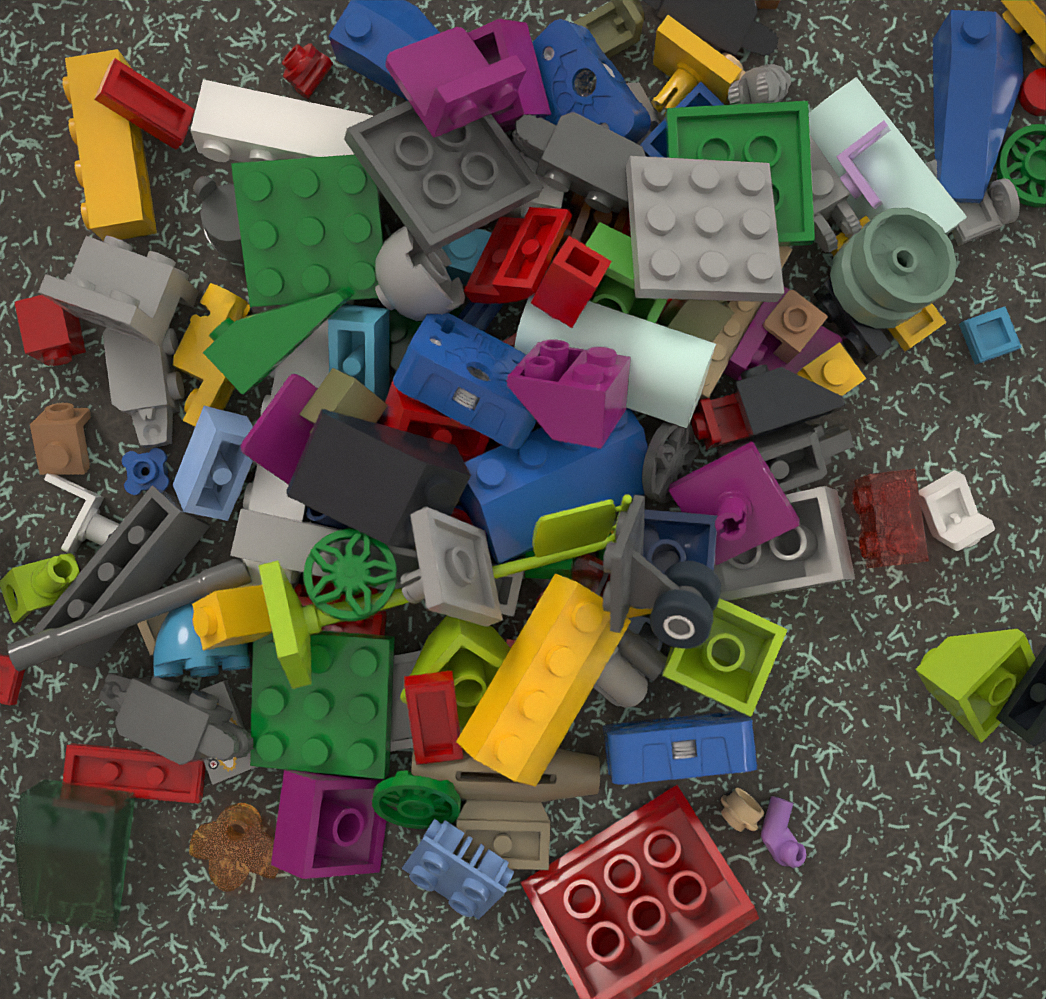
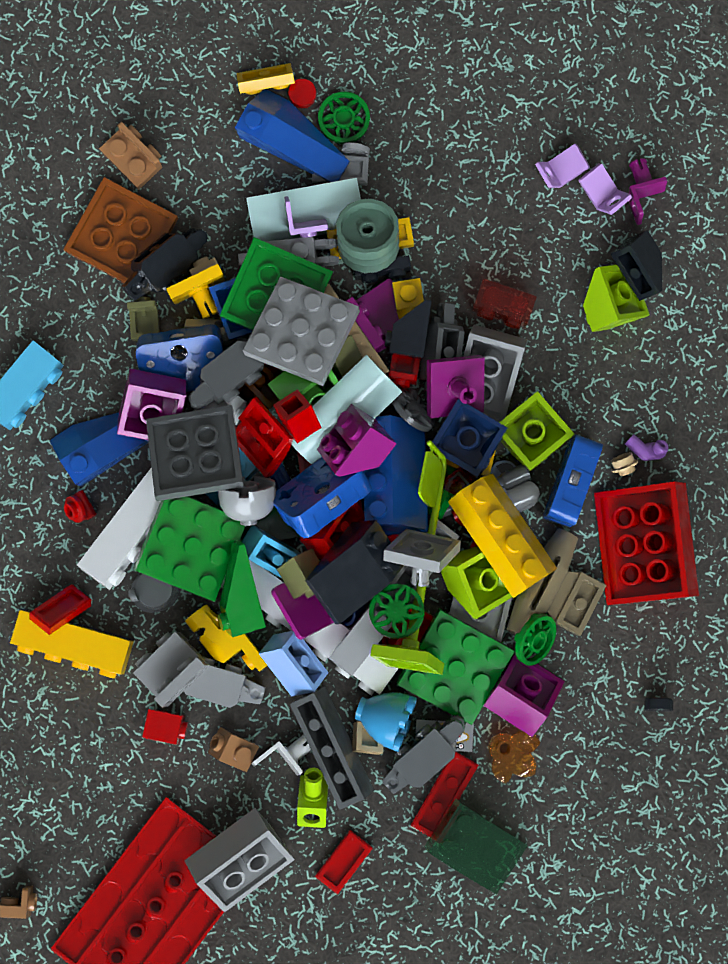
camera: 65 degrees left, 0 degrees up
(56, 641) = (355, 794): dark grey piece -> none
(135, 463) = (268, 714): blue plate -> none
(231, 617) = (388, 687): yellow brick -> none
(433, 717) = (494, 605): red tile -> none
(438, 869) = (584, 638): medium blue hinge -> none
(452, 80) = (151, 426): magenta bracket -> none
(679, 598) = (493, 441): plate -> none
(760, 85) = (227, 254): light grey hinge -> none
(793, 324) = (372, 304): medium nougat bracket -> none
(952, 512) = (516, 267): white bracket -> none
(990, 335) = (427, 194): dark azure tile -> none

